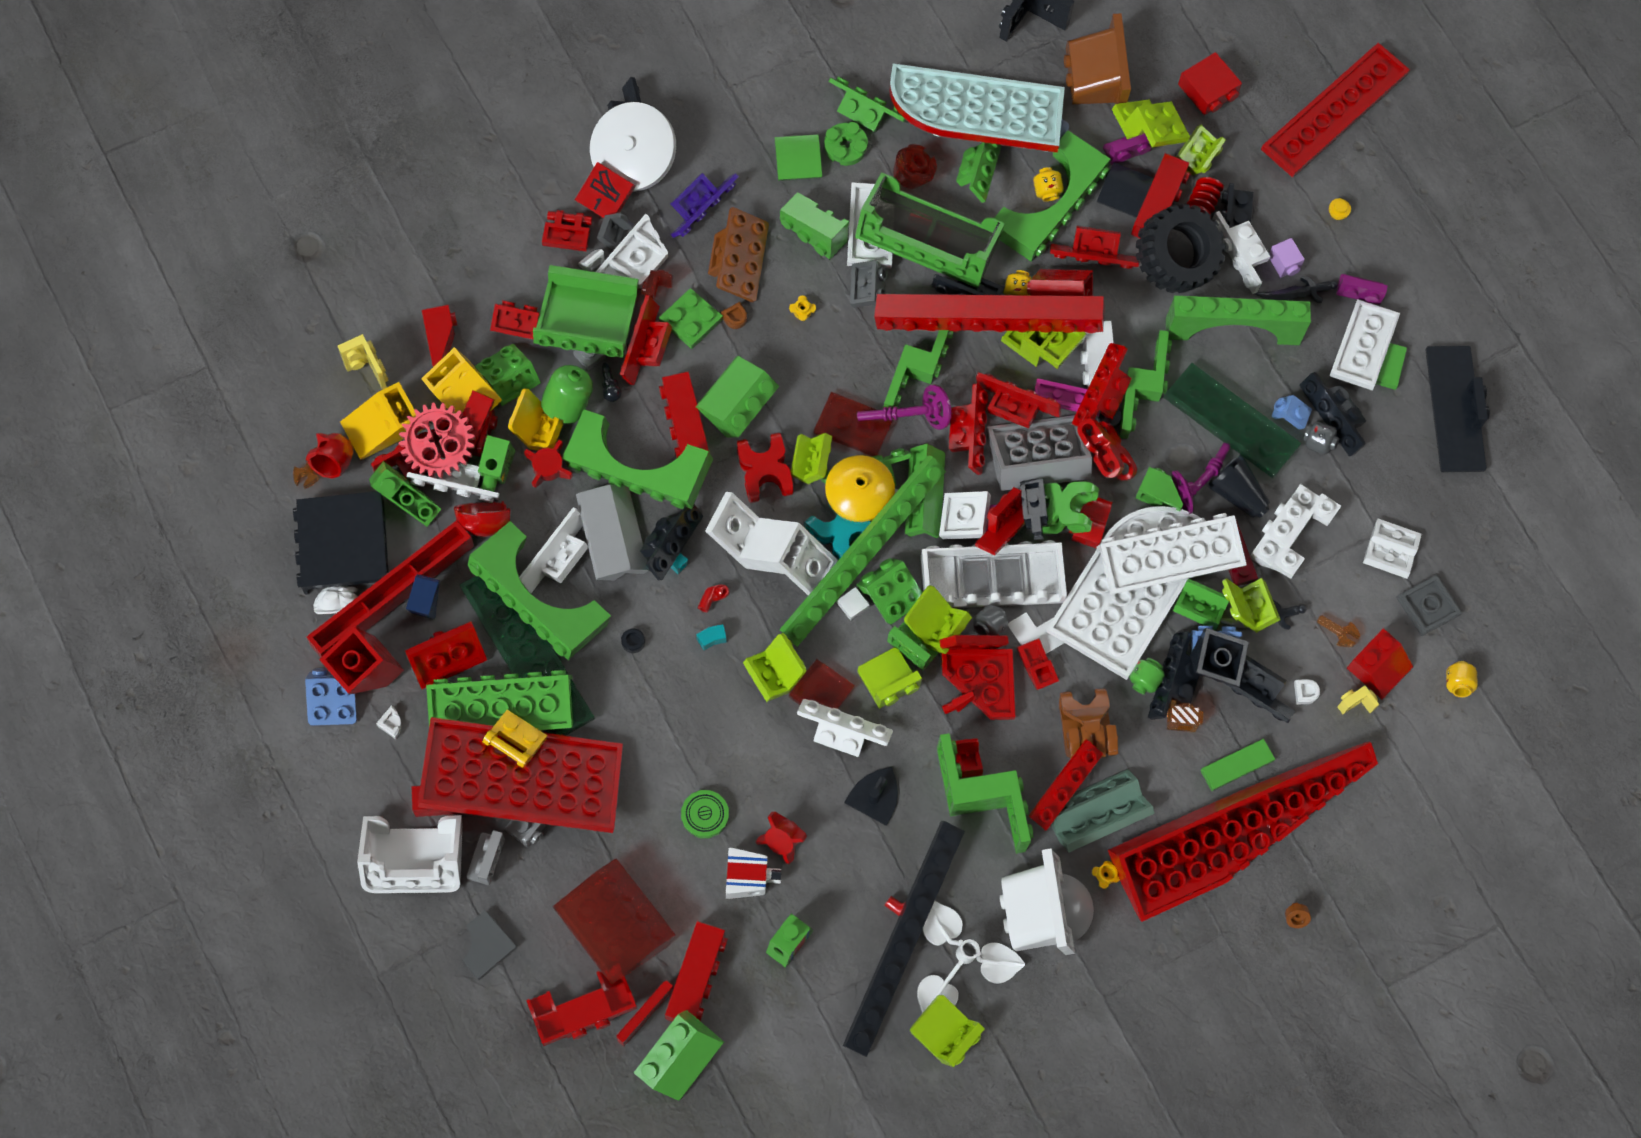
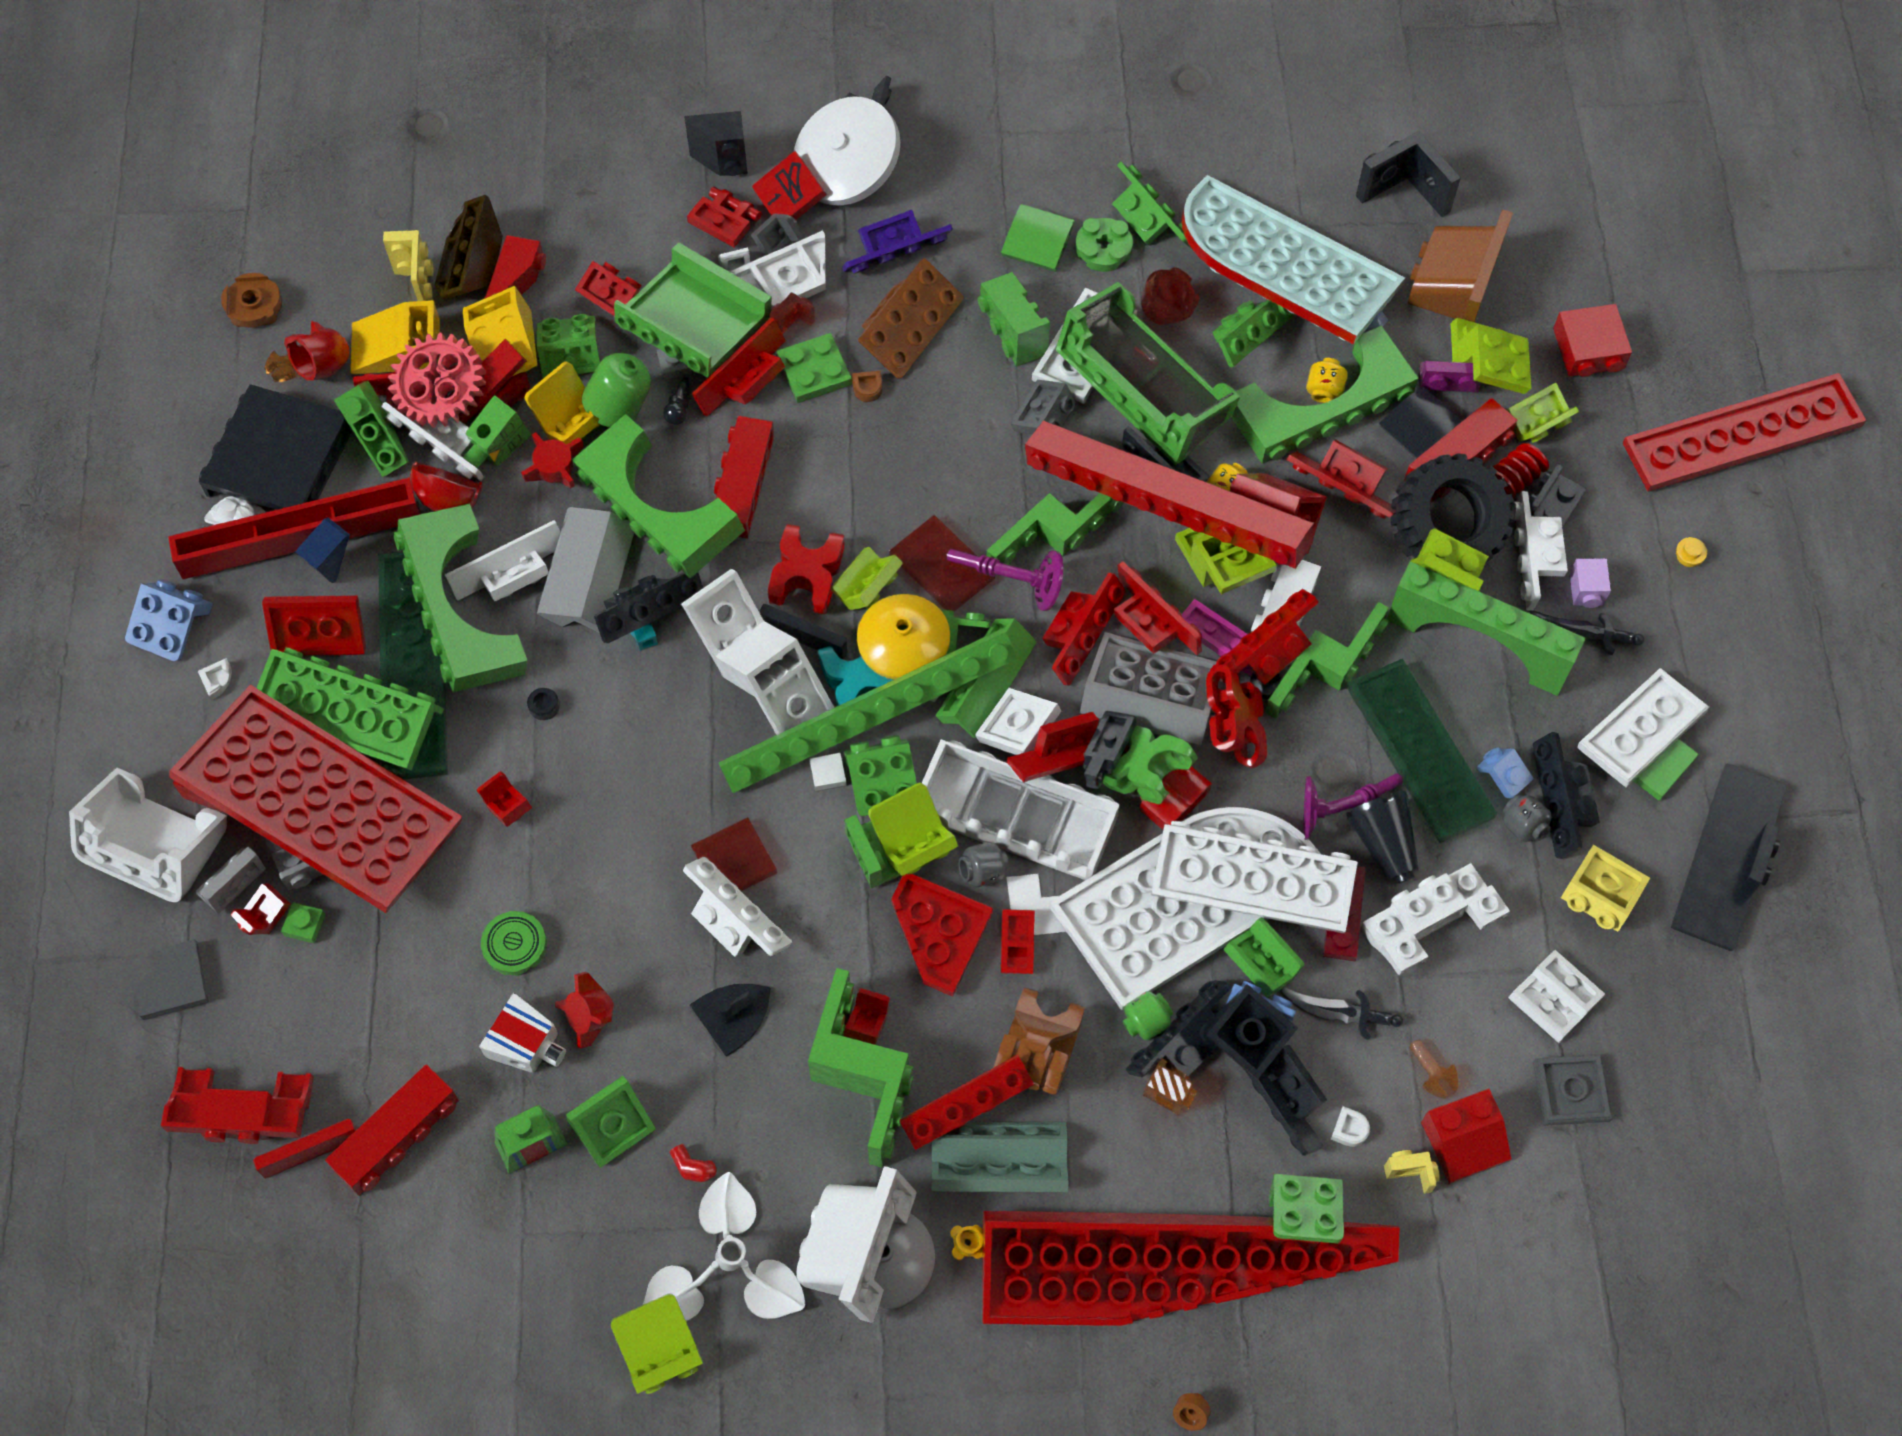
camera: 30 degrees right, 5 degrees down
(255, 447) = (256, 314): none -> dark orange plate
(361, 662) = (212, 590): red slope -> none
(398, 333) = (470, 250): none -> dark brown wedge
(519, 734) = (340, 747): yellow plate -> none
(521, 870) = (262, 911): none -> red bracket
(537, 177) = (718, 142): none -> black slope
(552, 865) = (303, 922): none -> bright green plate
(614, 921) = (329, 1021): clear red slope -> none
(646, 719) = (503, 799): none -> red bracket
(679, 1056) = (312, 1217): bright green slope -> none
(711, 595) = (664, 689): red arm -> none
(711, 636) = (637, 738): teal piece -> none
(737, 397) = (814, 472): bright green slope -> none
(776, 668) = (687, 807): lime bracket -> none
(790, 513) = (804, 631): none -> black tile
(798, 312) = (951, 414): yellow plate -> none
(837, 902) = (610, 1121): none -> bright green bracket
(889, 678) = (822, 877): lime bracket -> none
(903, 939) = (665, 1203): black plate -> none
(958, 702) = (891, 945): red bar -> none
(974, 642) = (944, 876): red tile -> none
(1159, 490) = (1280, 793): bright green slope -> none
(1197, 282) = (1452, 559): none -> lime bracket
(1237, 765) = (1212, 1181): bright green tile -> none
(1251, 604) = (1324, 986): lime bracket -> none
(1309, 755) = (1307, 1208): none -> bright green bracket
(1361, 289) = (1670, 658): magenta bracket -> none
(1391, 464) = (1605, 889): none -> light yellow plate
(1461, 679) = (1569, 1203): yellow head -> none

